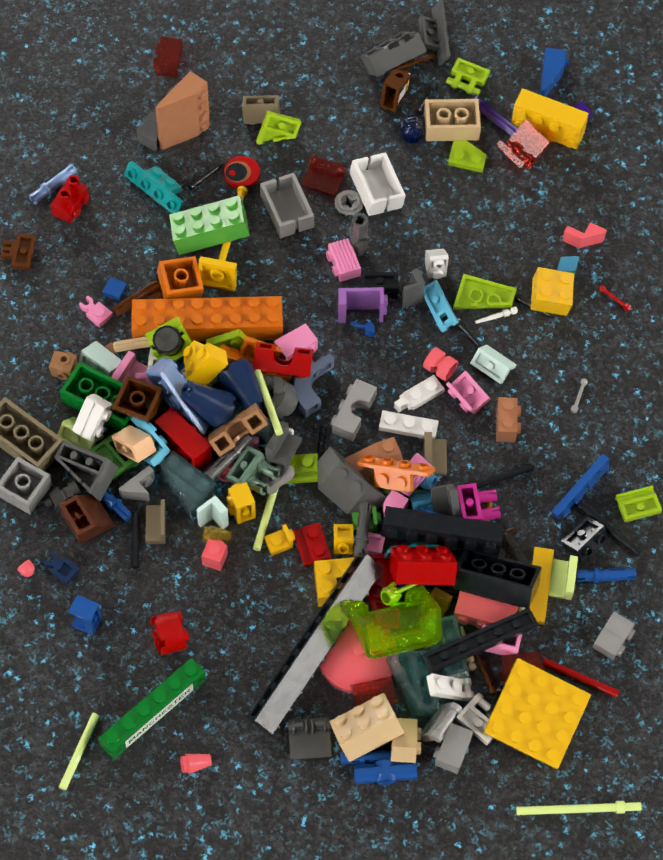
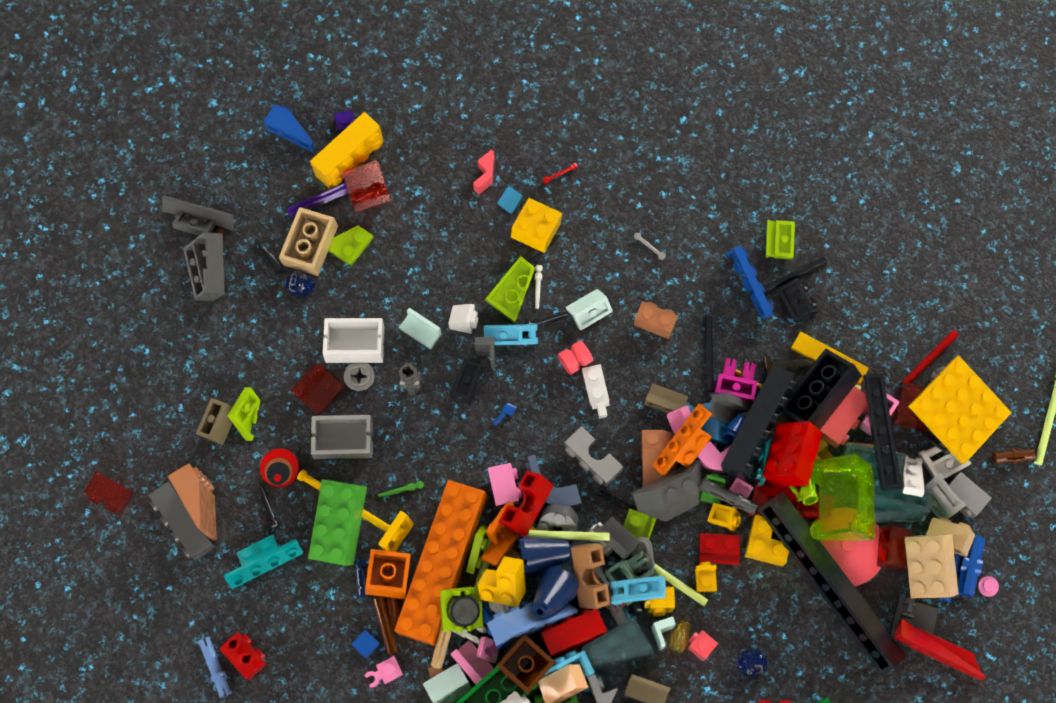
camera: 65 degrees left, 10 degrees up
(214, 602) = (752, 663): none -> clear blue head
(240, 471) = (638, 589): none -> medium azure plate
(265, 276) = (410, 487): none -> bright green piece
(290, 761) = (938, 649): none -> red wedge
(343, 260) = (424, 405): bright pink brick -> none
(361, 300) = (476, 423): medium lavender panel -> none
(371, 796) = (988, 586): none -> bright pink plate
(396, 81) = (248, 281): reddish brown torso -> none
(407, 424) = (625, 412): white plate -> none
(412, 235) = (420, 329): none -> light aqua panel
(468, 392) = (614, 344): bright pink bracket -> none
(470, 72) = (257, 203): lime plate -> none
(488, 681) = (908, 439): reddish brown piece -> none
(514, 784) = (1014, 456): none -> reddish brown pin
(563, 578) = (831, 332): yellowish green panel -> none
(596, 575) = (838, 302): blue pin -> none
(614, 635) = (902, 313): light grey brick -> none

